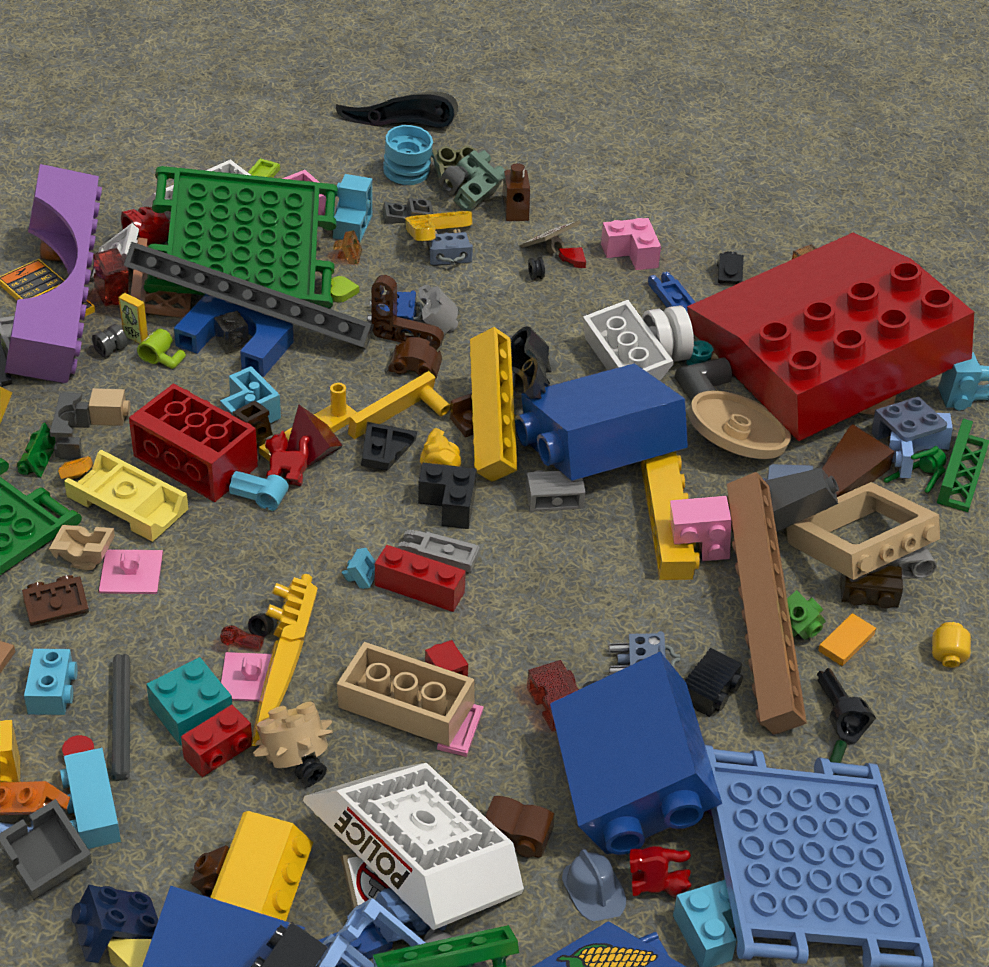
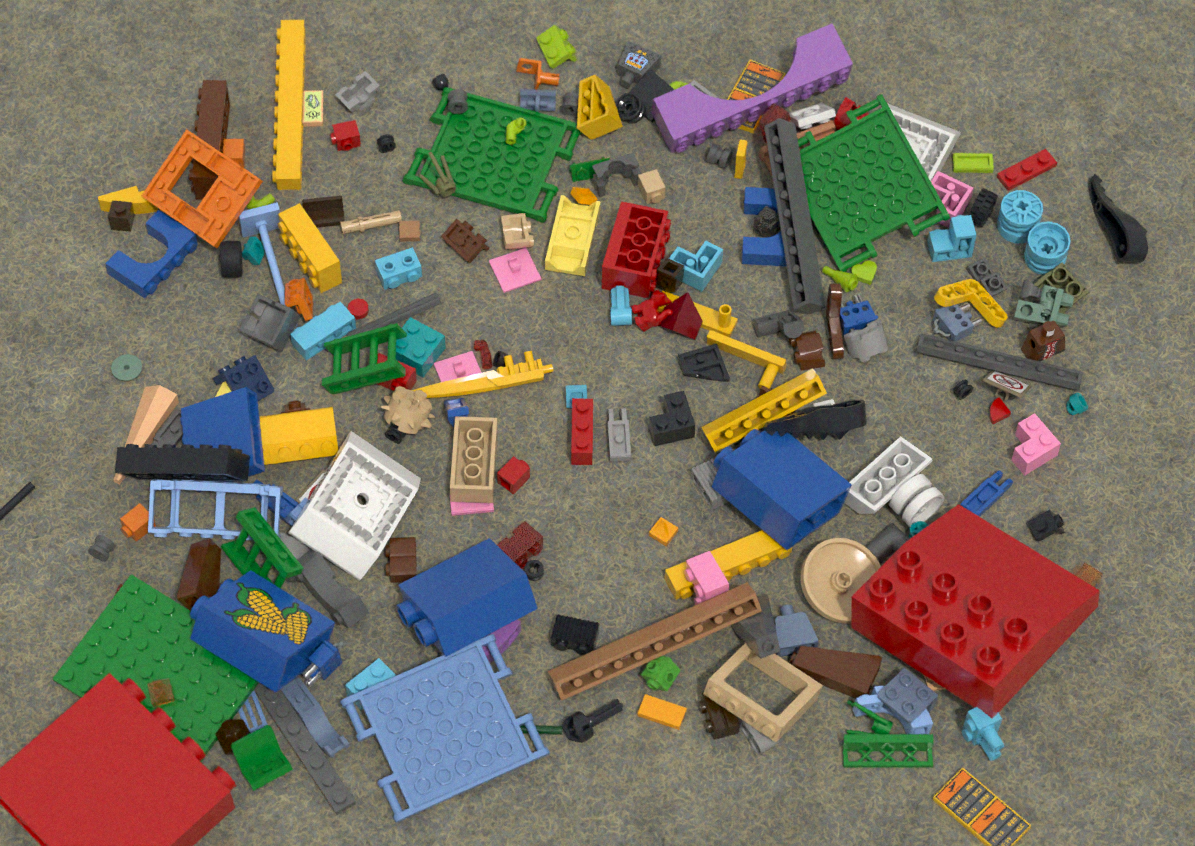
camera: 70 degrees right, 15 degrees up
(154, 349) = (728, 186): lime piece -> none
(202, 777) = (375, 371): none -> green fence
(295, 146) = (1026, 169): none -> red plate
(317, 687) = (454, 408): none -> blue tile
(326, 170) = (983, 207): none -> black tyre
(346, 302) = (847, 280): none -> lime cone
(350, 247) = (911, 257): clear orange tile -> none
(356, 155) = (1018, 215): none -> medium azure wheel
(371, 361) = (782, 321): none -> dark grey brick
(439, 450) = (705, 402): yellow head -> none
(515, 235) = (1000, 362): none -> dark grey plate
(548, 926) = (338, 600): none -> dark grey brick
(594, 887) = (380, 619): sand blue piece -> none
(595, 557) = (663, 531): none -> light orange tile
(596, 201) = (1078, 402): none -> teal tile
(639, 648) = (578, 589): sand blue piece -> none
(651, 872) = (398, 645): red animal -> none
(951, 644) = (684, 778): yellow head -> none

